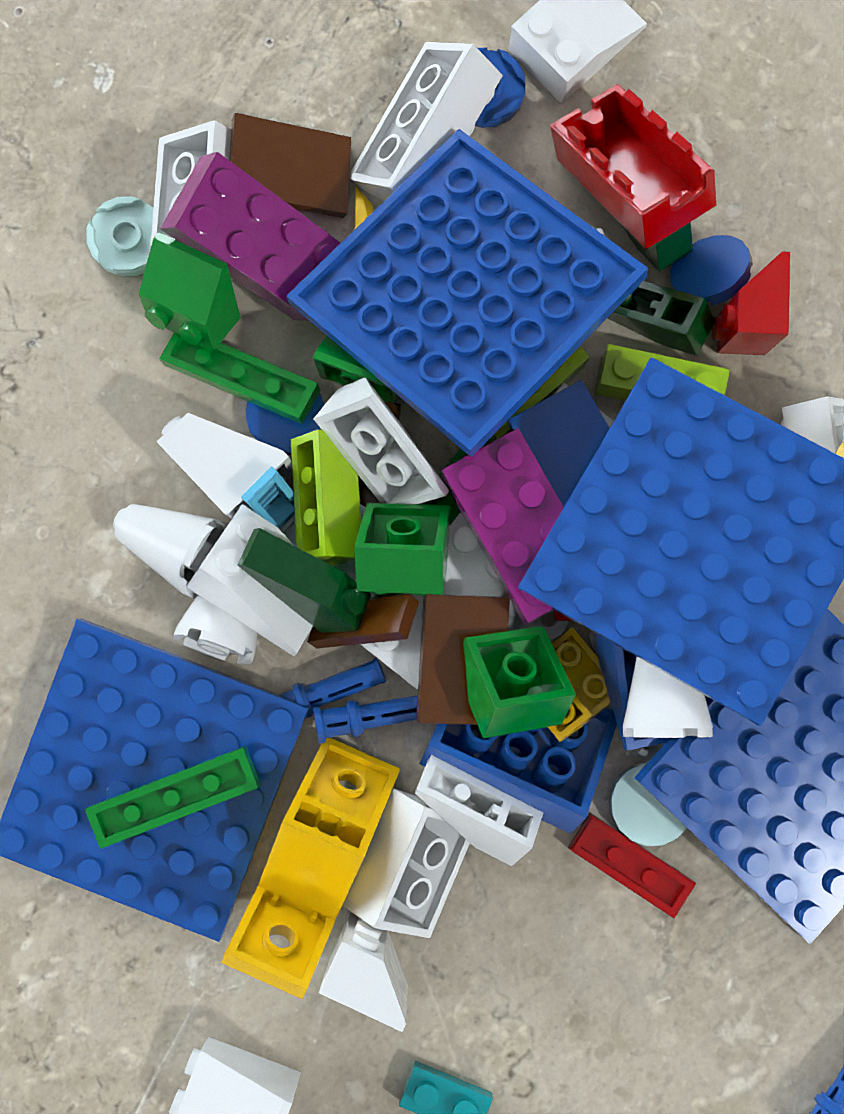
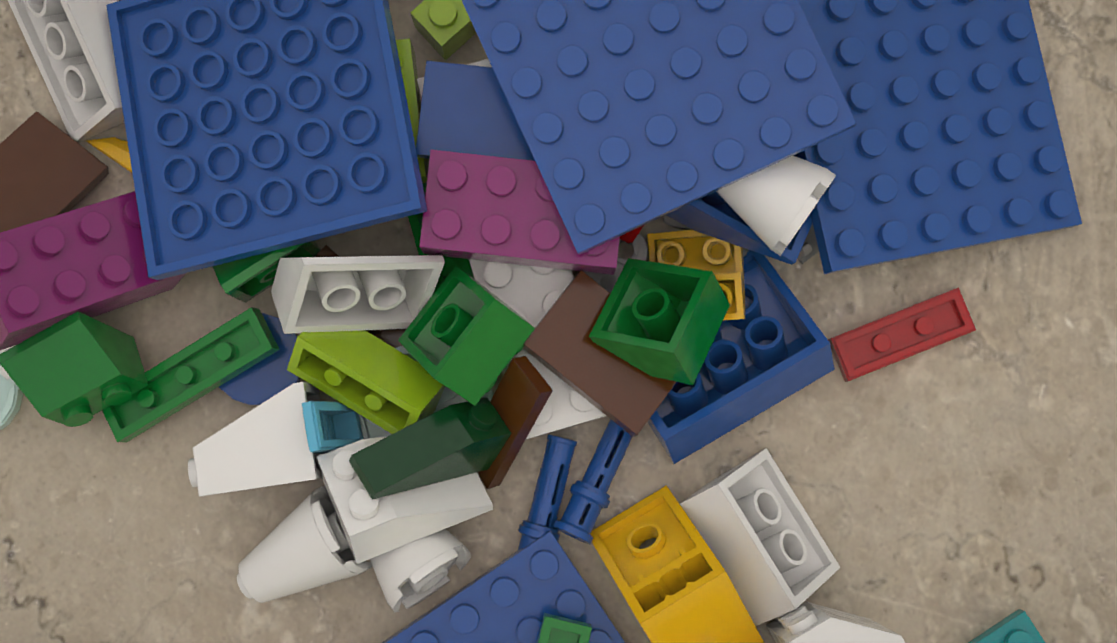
camera: 60 degrees left, 0 degrees up
(479, 811) = (757, 437): white slope -> none
(639, 813) = (861, 292): light aqua tile -> none

